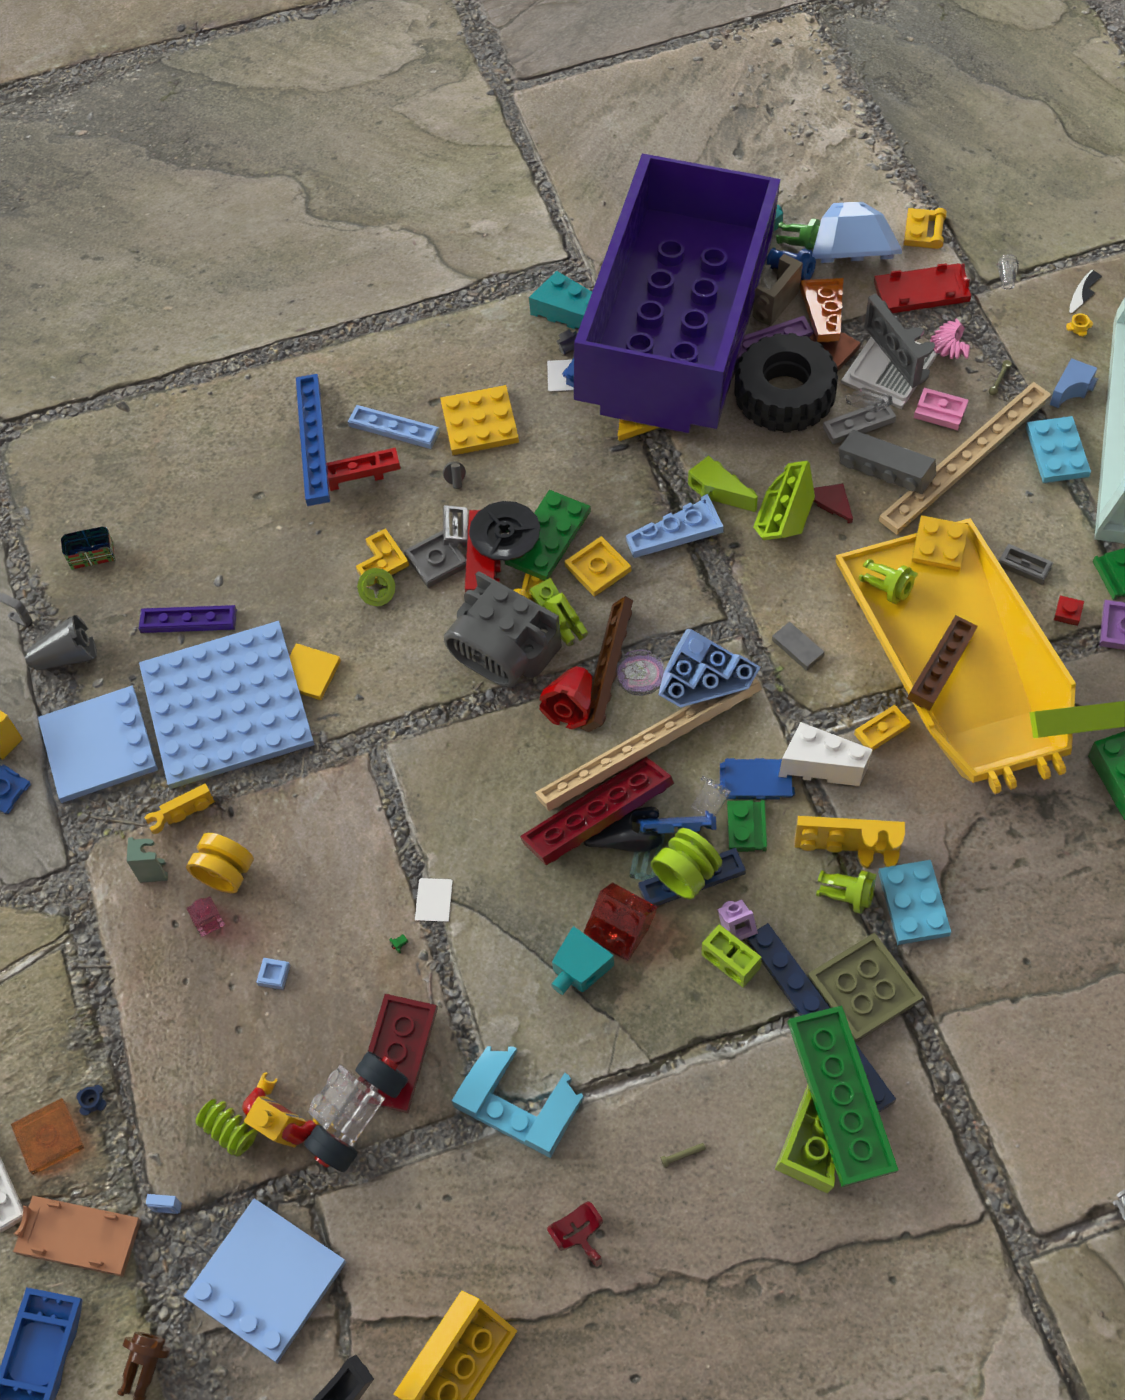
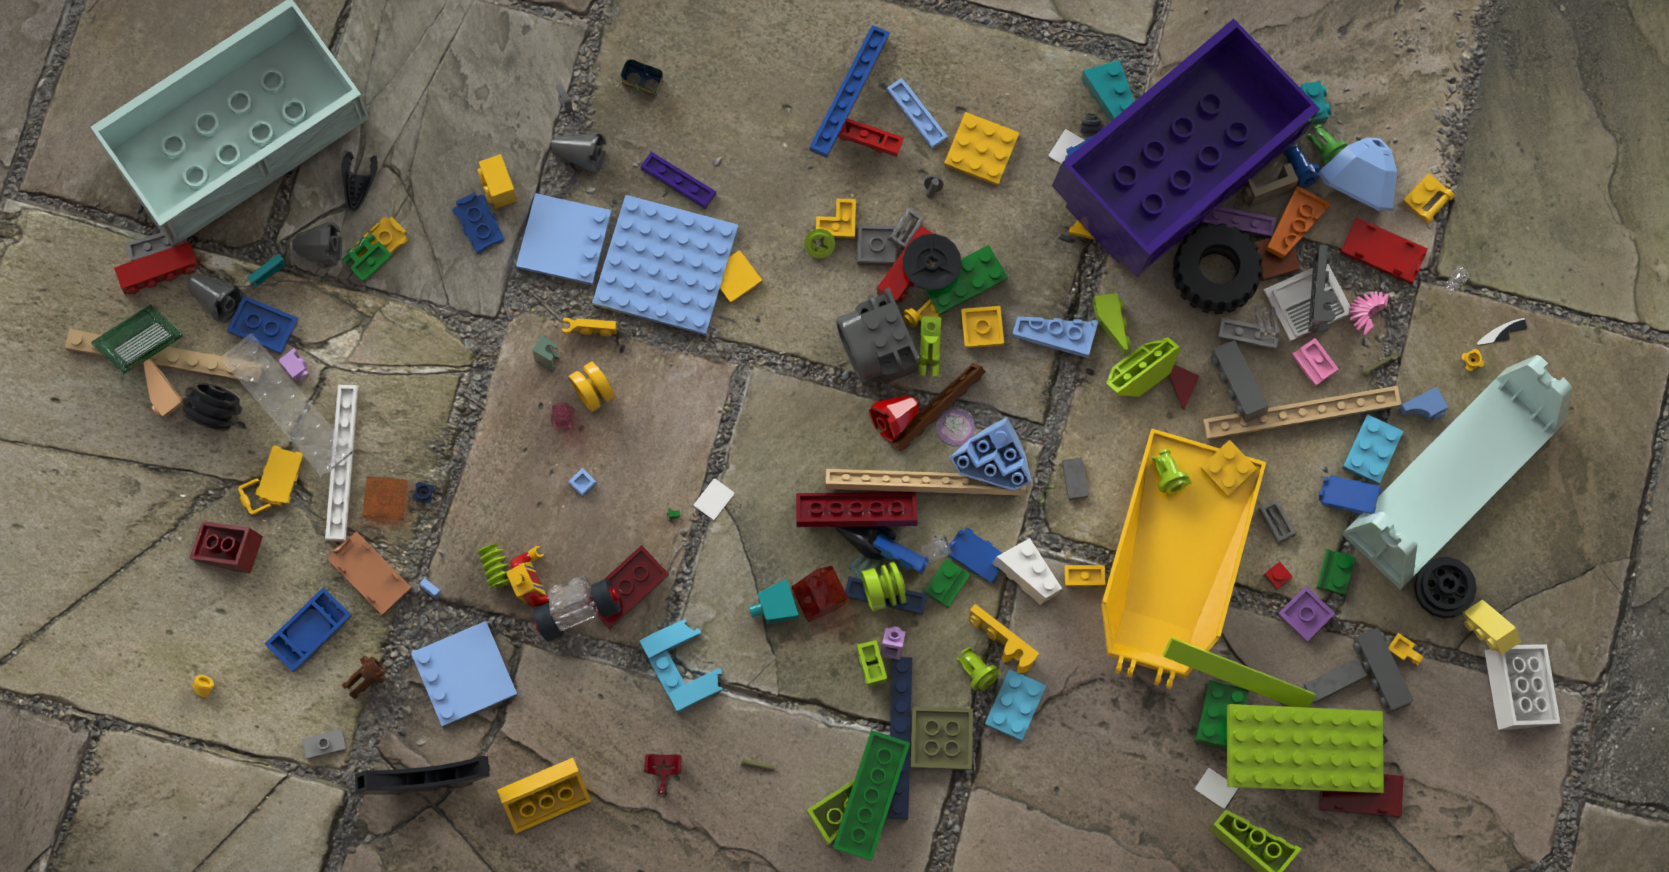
camera: 25 degrees right, 15 degrees up
(942, 663) = (1152, 560): reddish brown plate -> none
(1073, 495) = (1349, 494): none -> blue piece

